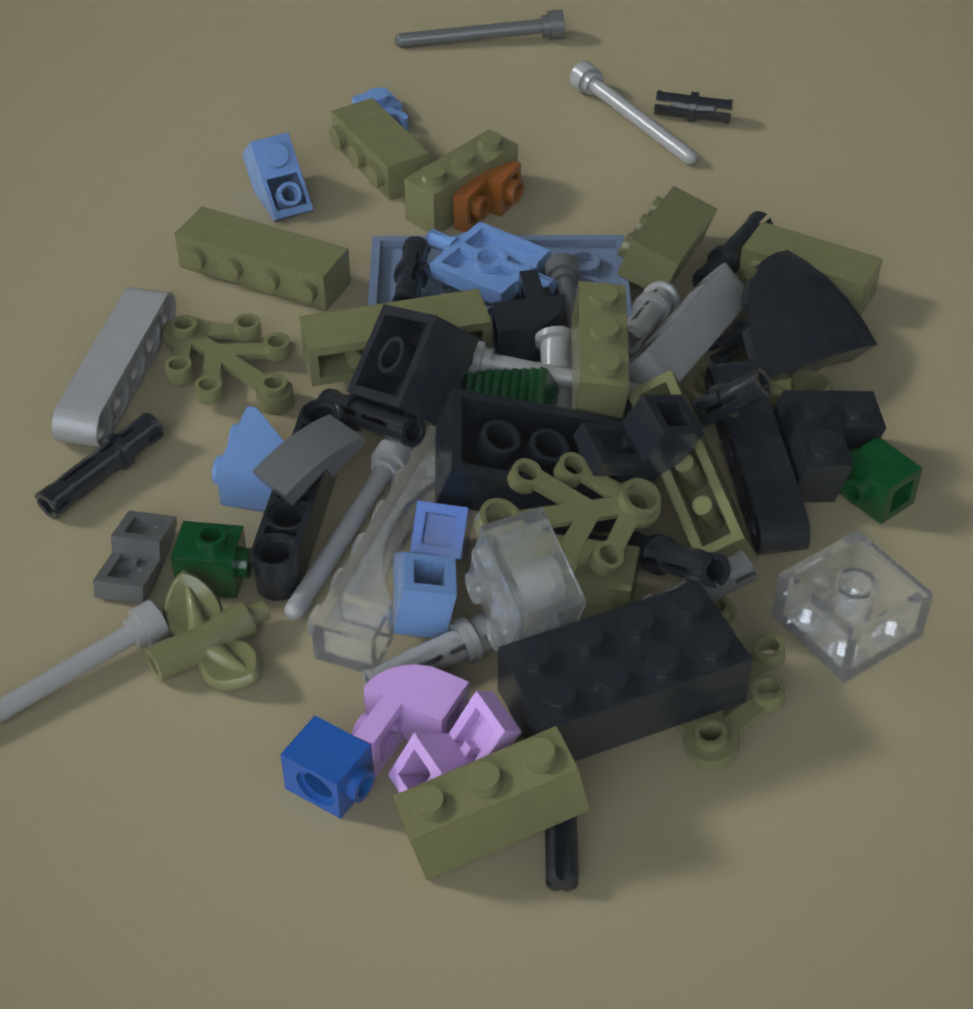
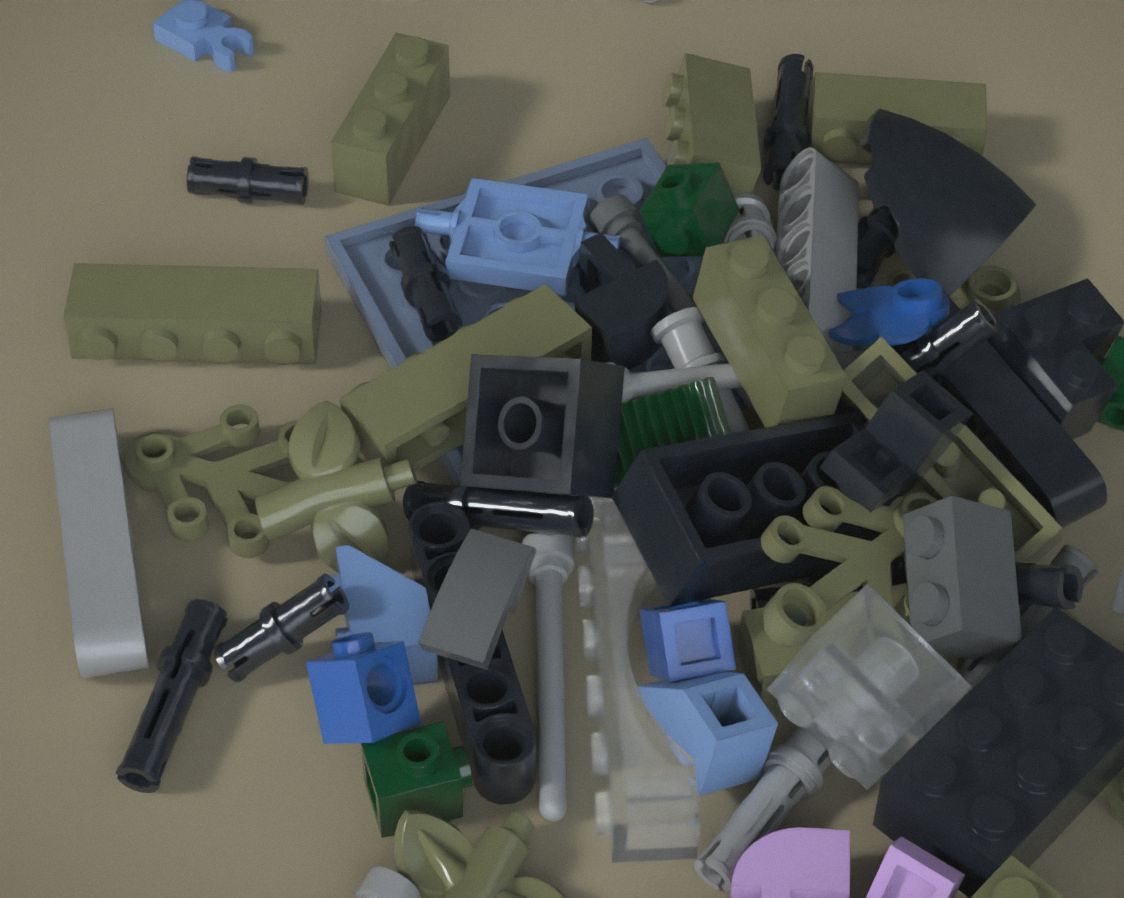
camera: 25 degrees left, 5 degrees up
(137, 557) = (304, 809): dark grey slope -> none
(185, 443) = (281, 628): none -> black pin
(218, 501) = (363, 690): none -> blue brick
(269, 373) = (333, 488): none -> olive plant
(277, 177) = (136, 183): medium blue slope -> none
(351, 196) = (247, 180): none -> black pin
(377, 146) = (247, 95): olive brick -> none
(487, 193) = (437, 128): dark orange slope -> none
(616, 265) = (689, 209): none -> dark green brick
(637, 539) = (962, 577): none -> dark grey brick
(708, 368) = (894, 312): none -> blue plate

